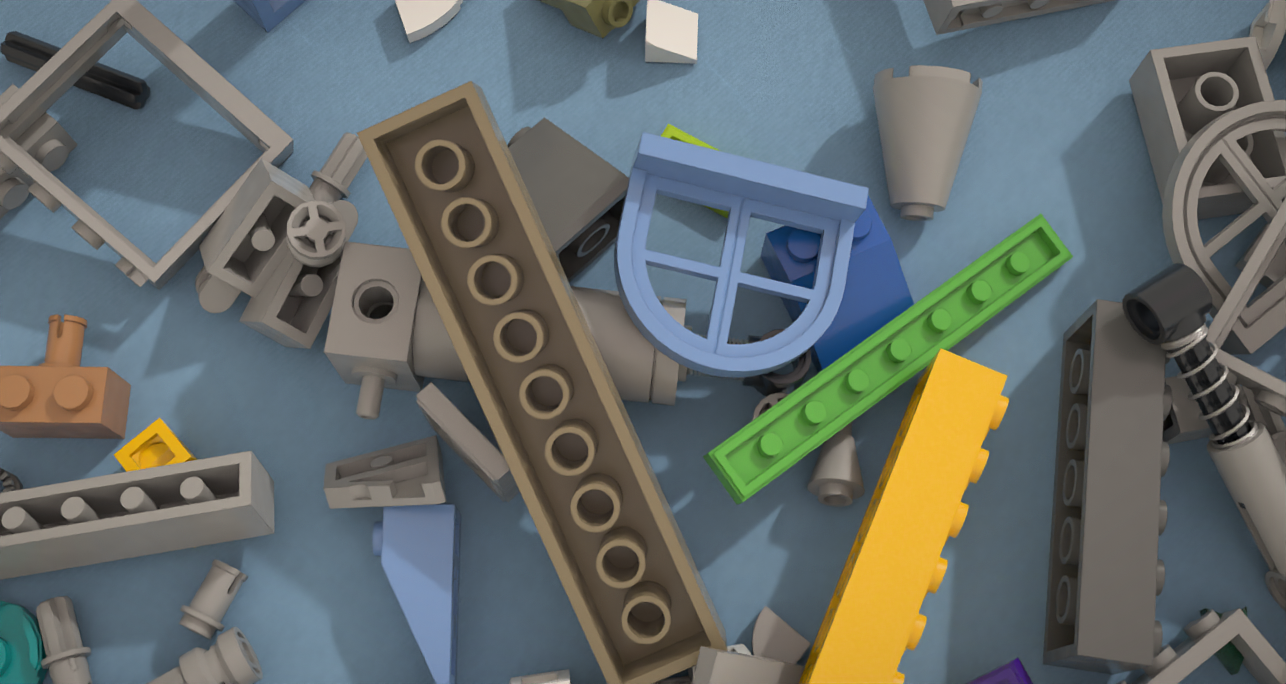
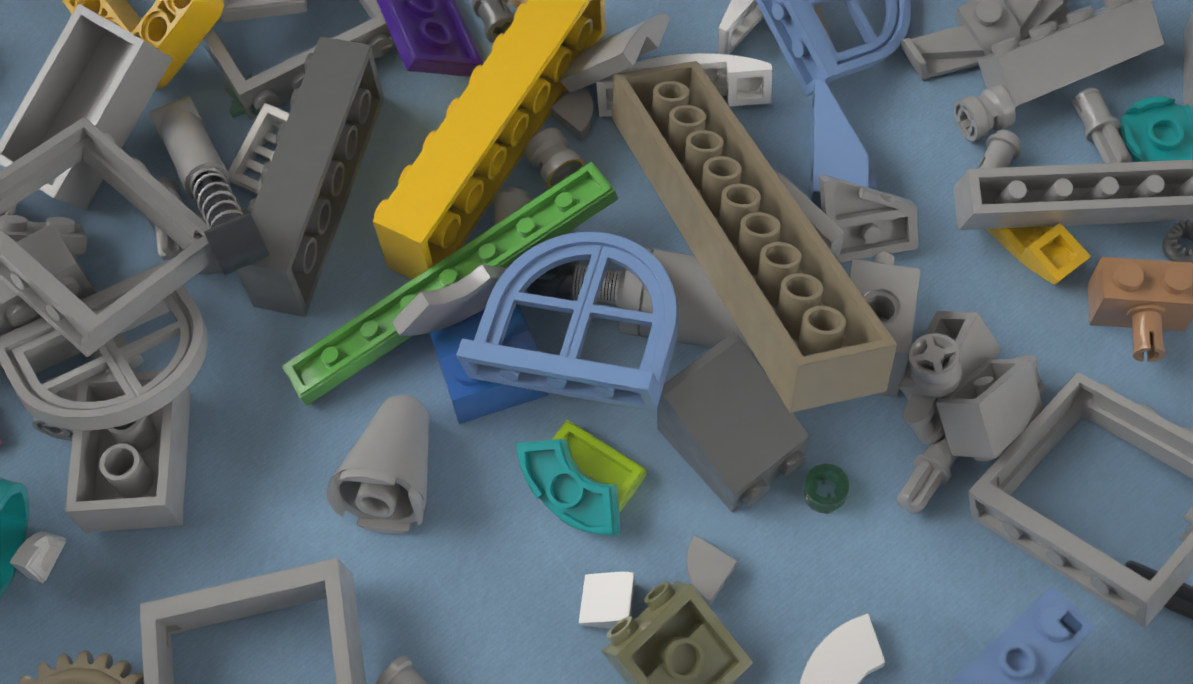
camera: 170 degrees left, 10 degrees down
(570, 72) = (708, 568): none -> light grey tile
(710, 125) = (566, 489): none -> teal tile
(794, 555) = (551, 154): none -> light grey wheel
(883, 305) = (449, 305): none -> light grey tile
(1182, 593) = (261, 131): none -> white slope

